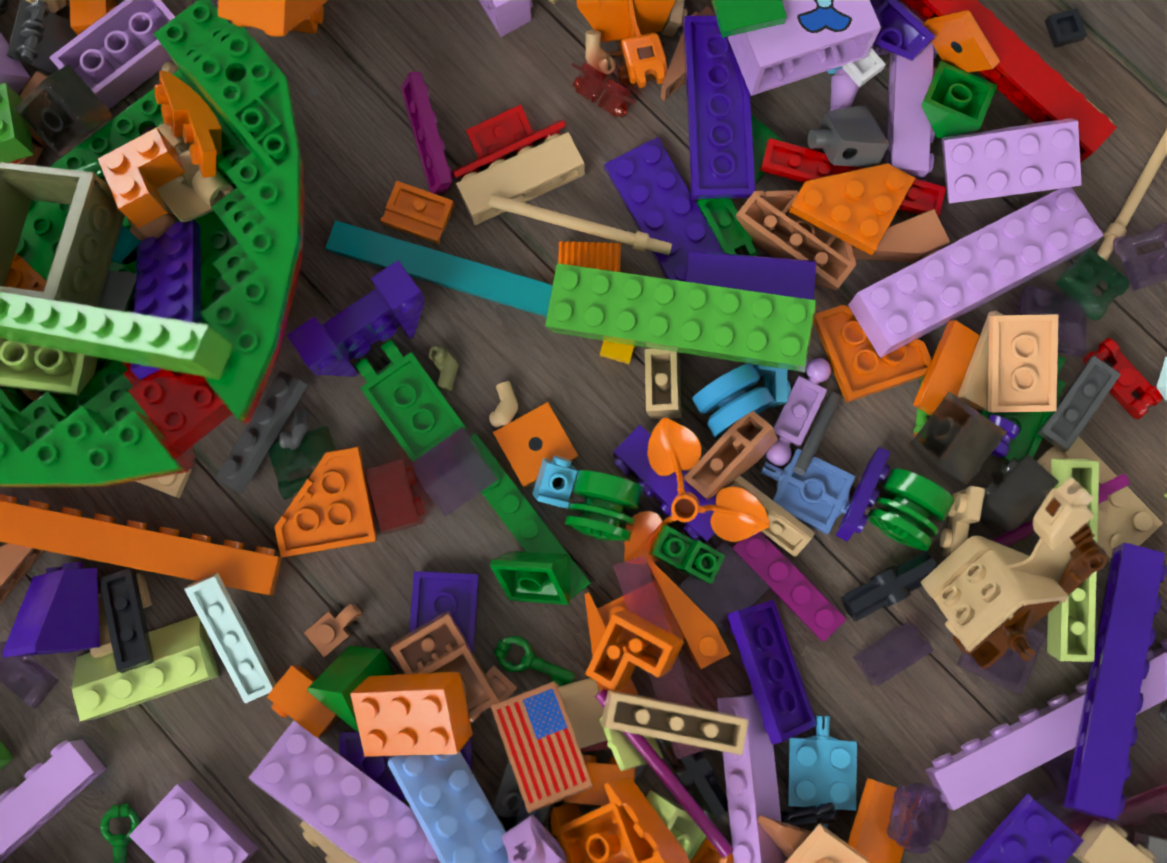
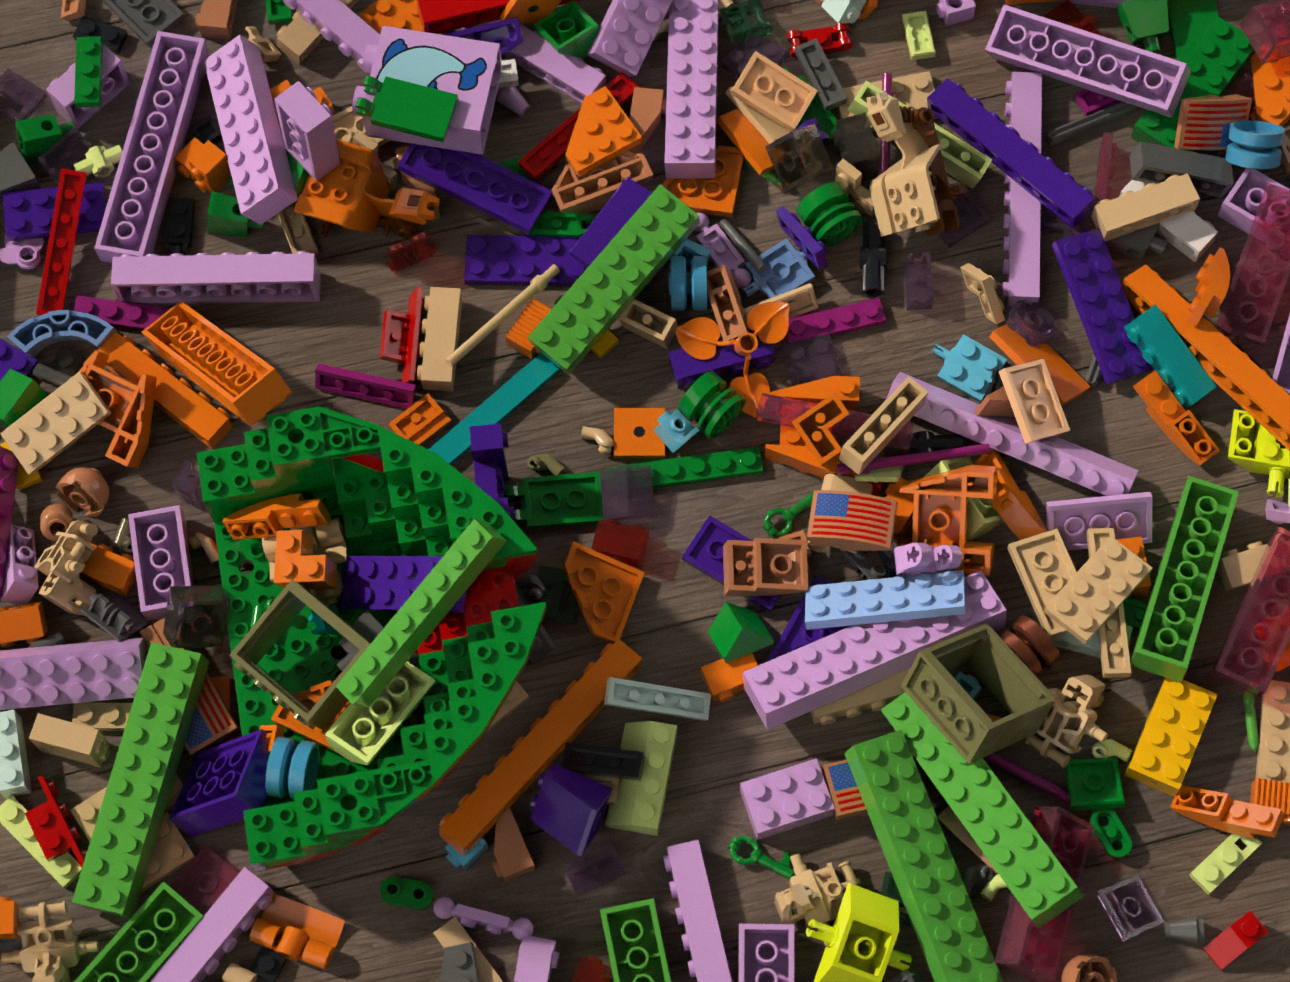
camera: 60 degrees left, 10 degrees down
(331, 631) = (690, 638): nougat plate -> none
(412, 714) = (783, 592): orange brick -> none
(534, 576) = (735, 477): green slope -> none
(596, 55) = (382, 241): tan arm -> none
(687, 554) = (777, 371): green slope -> none
(772, 671) = (885, 358): dark purple plate -> none
(850, 137) = (551, 110): dark grey torso -> none
(924, 742) = (984, 287): none -> tan plate

